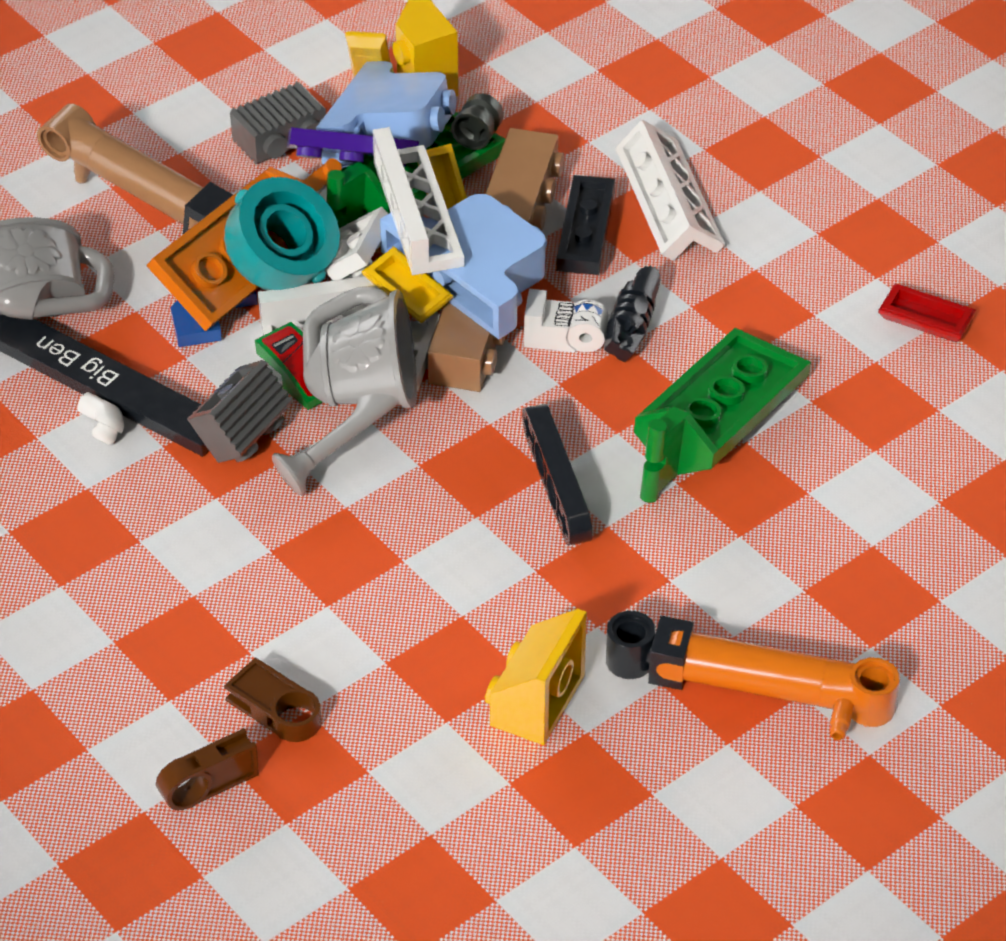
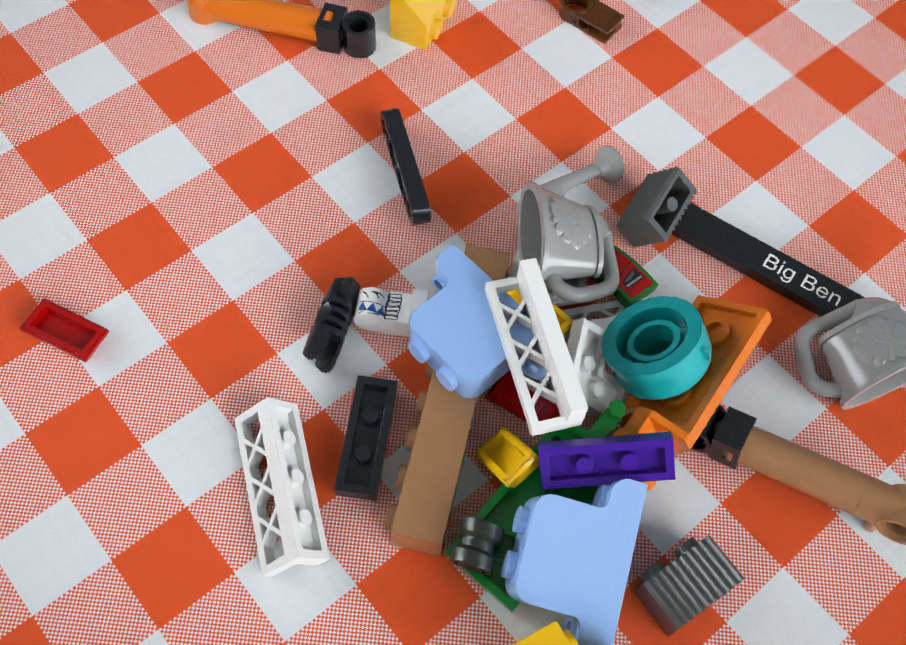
camera: 175 degrees right, 15 degrees up
(105, 413) = (758, 226): white arm -> none
(714, 407) = (270, 216): green hinge -> none

